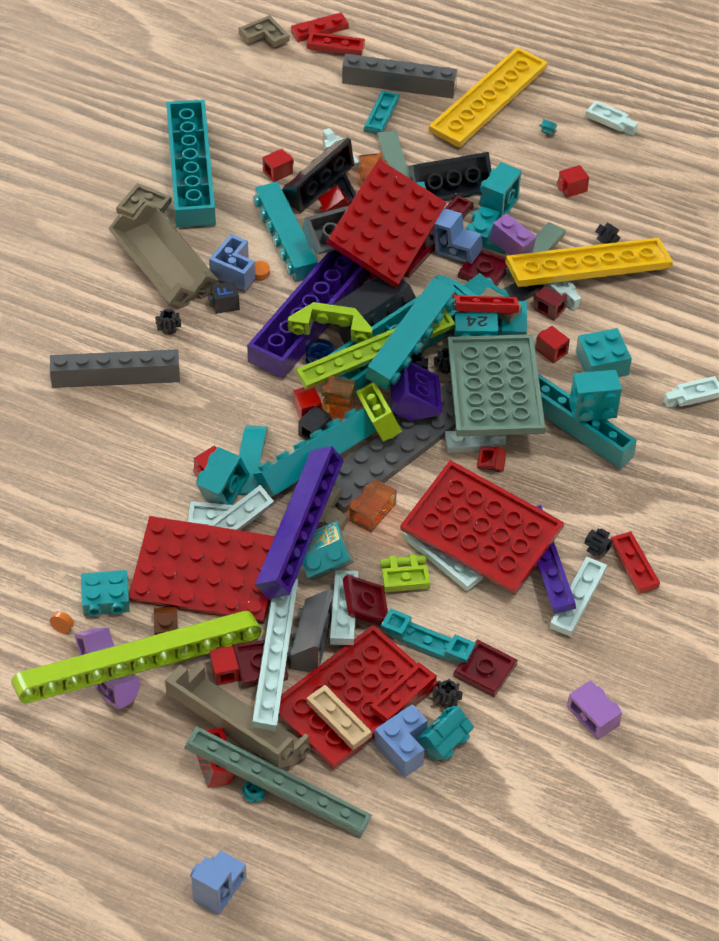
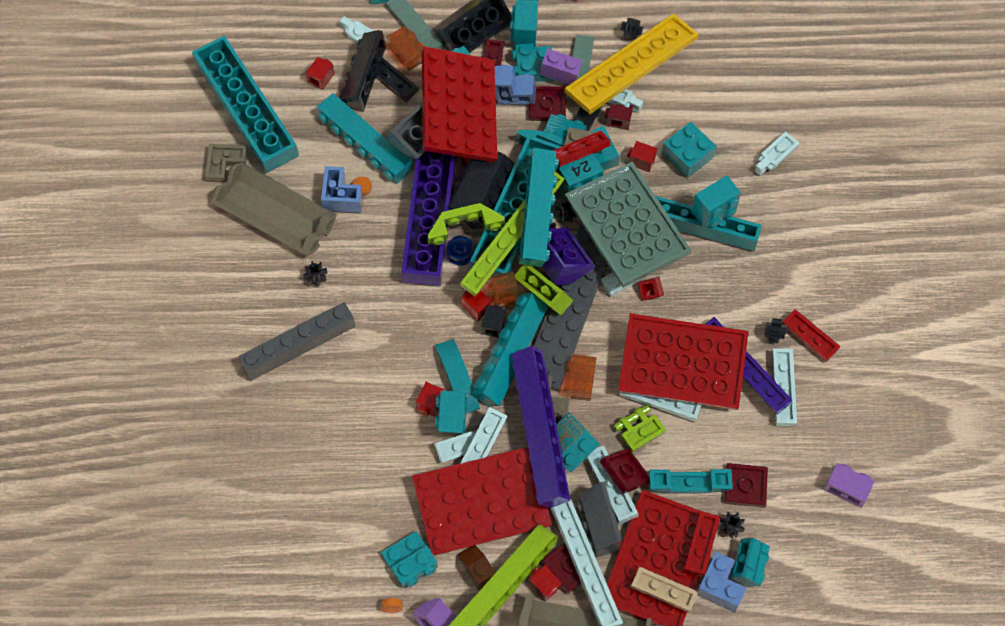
camera: 25 degrees left, 15 degrees up
(224, 297) = (349, 228): black brick -> none
(333, 200) = (391, 93): red brick -> none

